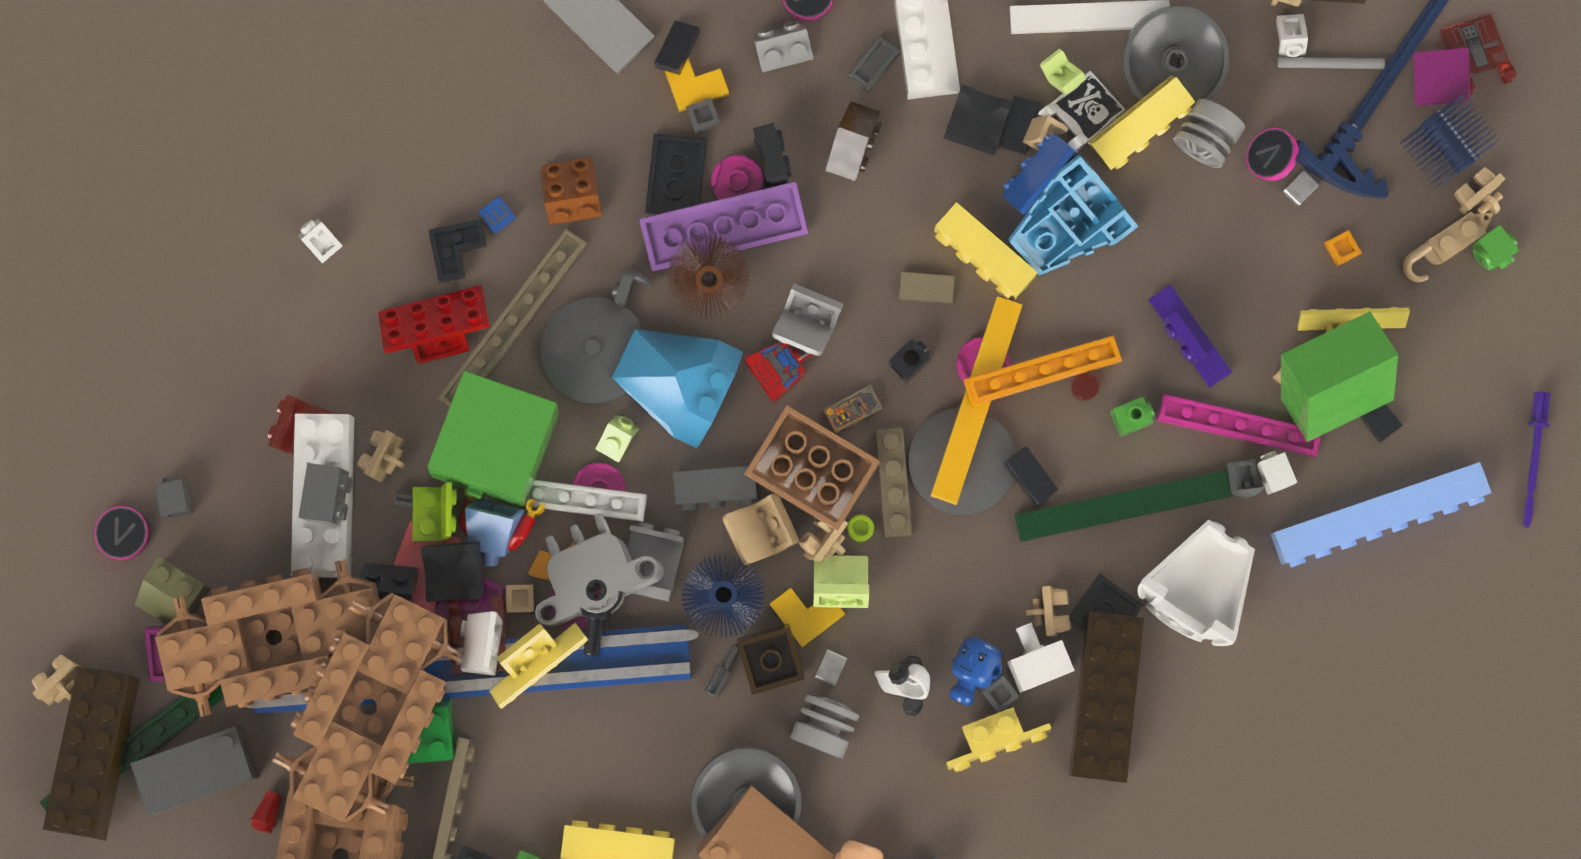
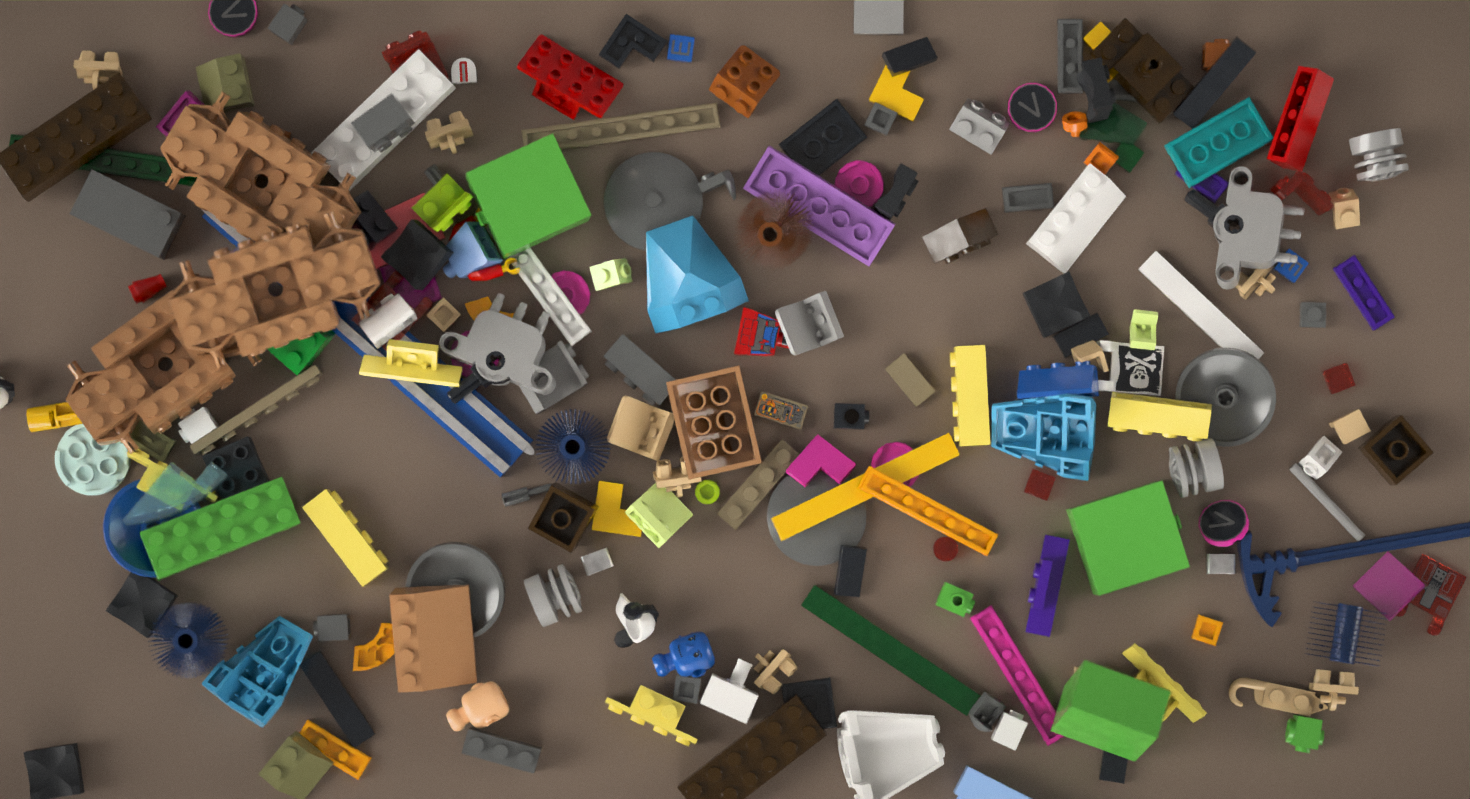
camera: 40 degrees right, 5 degrees up
(347, 398) = (463, 71): none -> white tile
(918, 414) = (820, 456): none -> dark pink tile
(1105, 267) = (1039, 484): none -> clear red tile
(1213, 237) = (1128, 538): none -> bright green container

